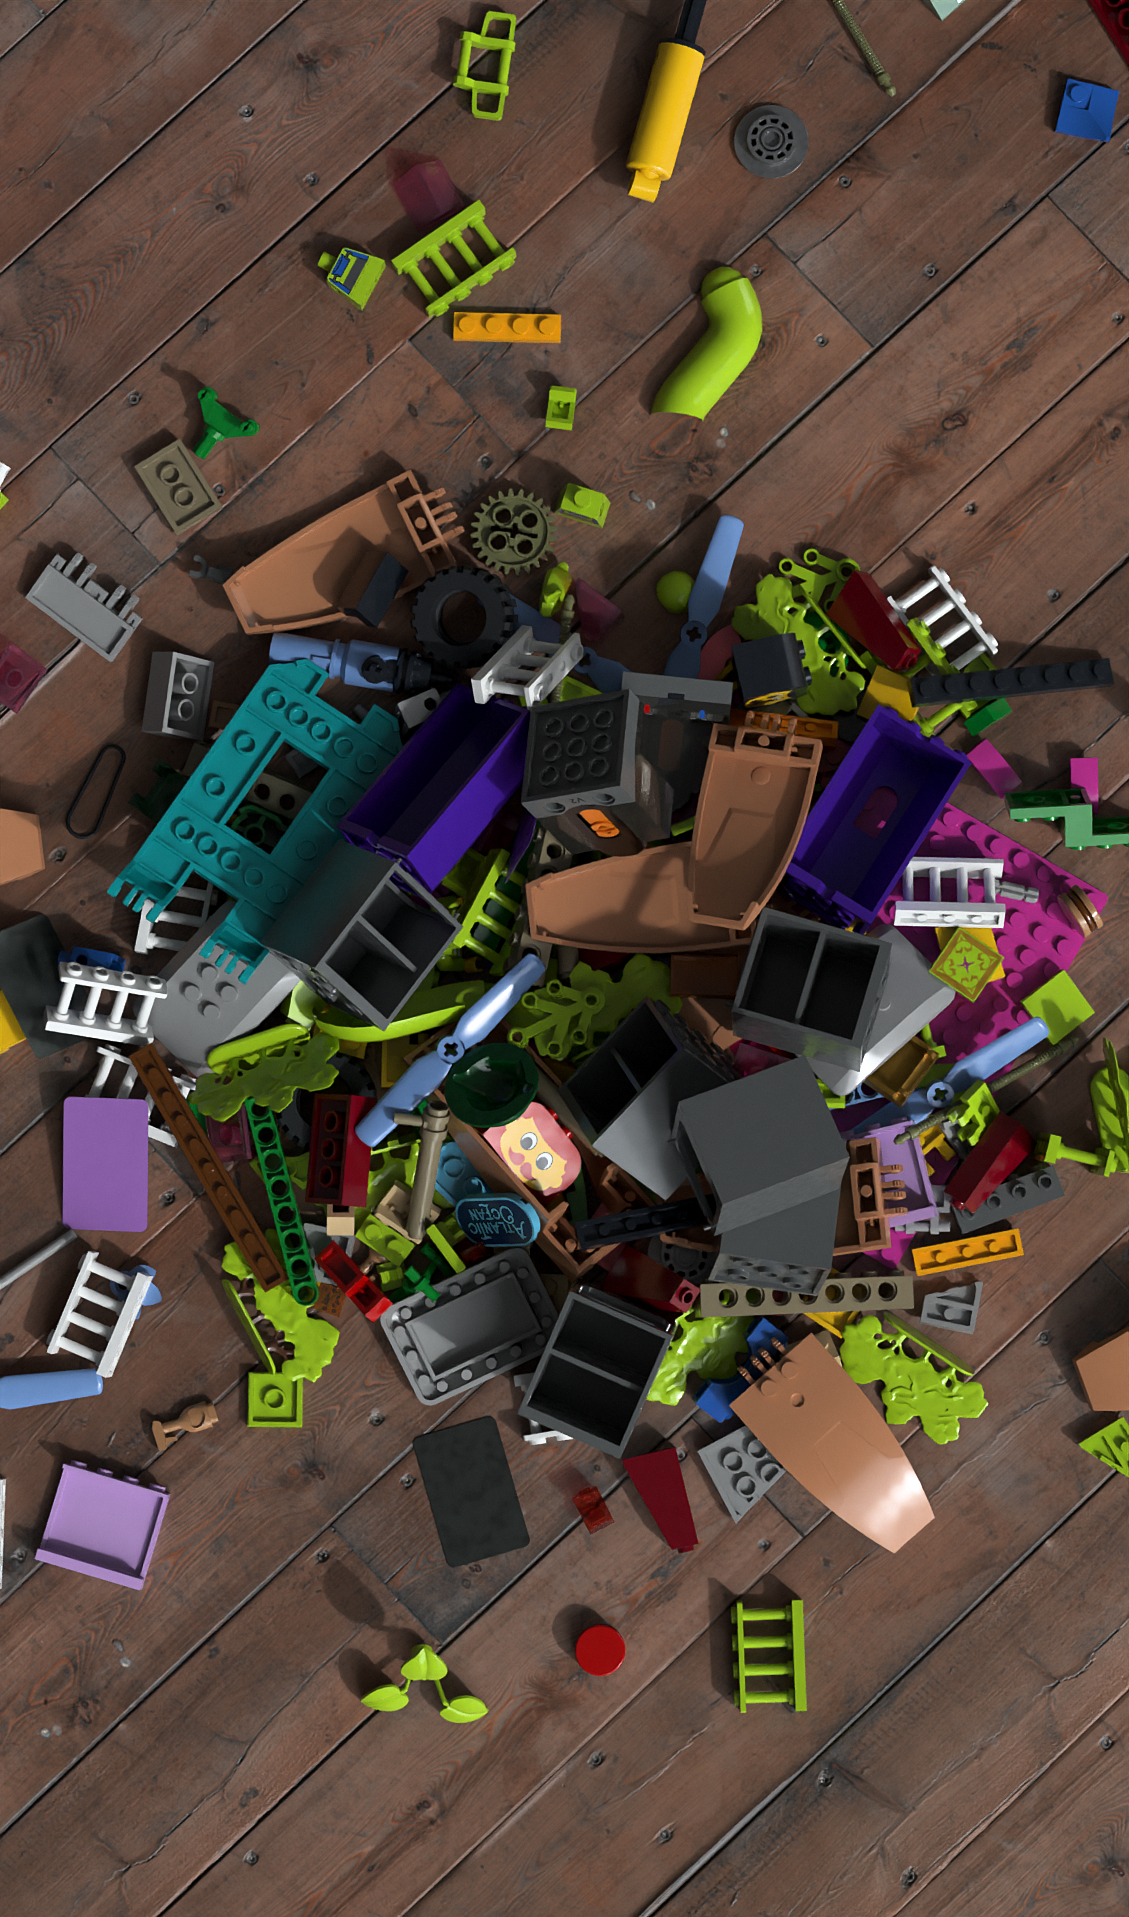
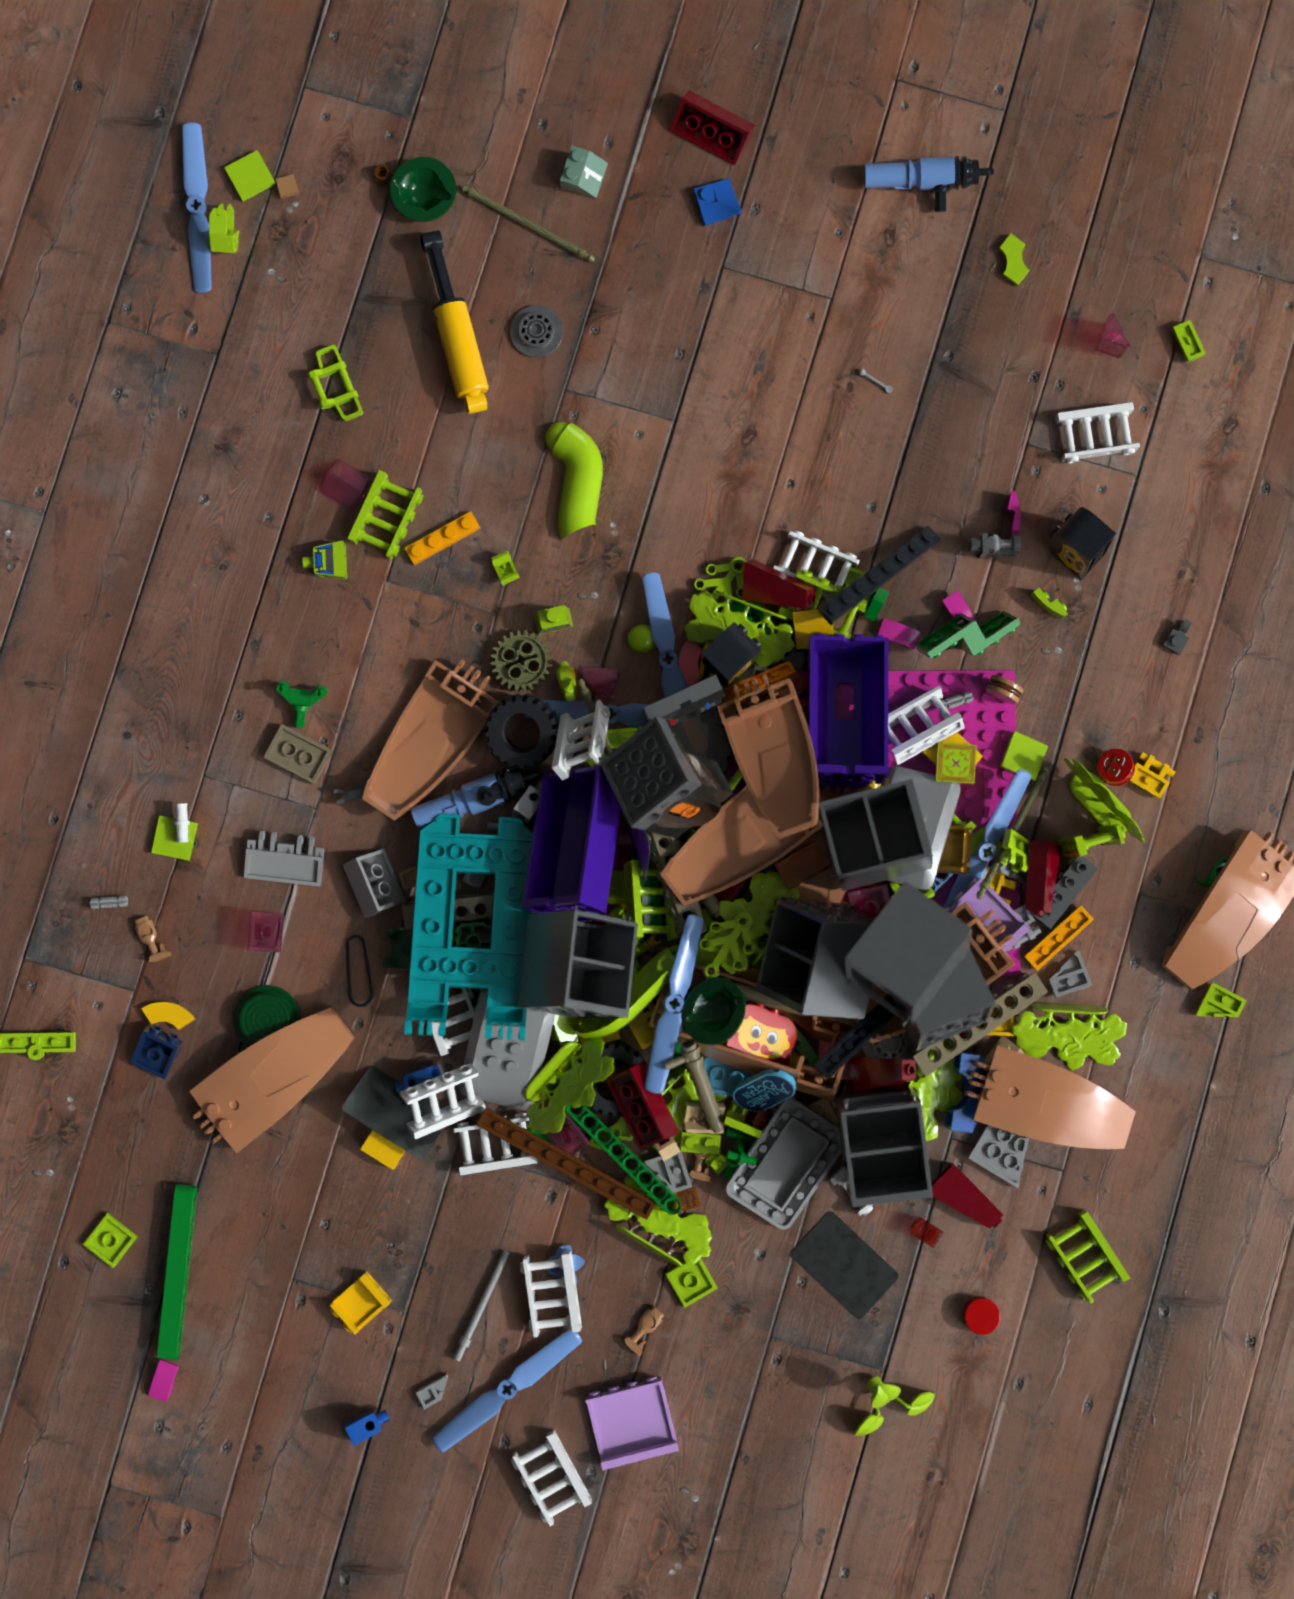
camera: 35 degrees left, 0 degrees up
(105, 1164) = (500, 1198): medium lavender sticker -> none
(353, 1281) = (697, 1180): red slope -> none
(372, 588) = (455, 746): black piece -> none

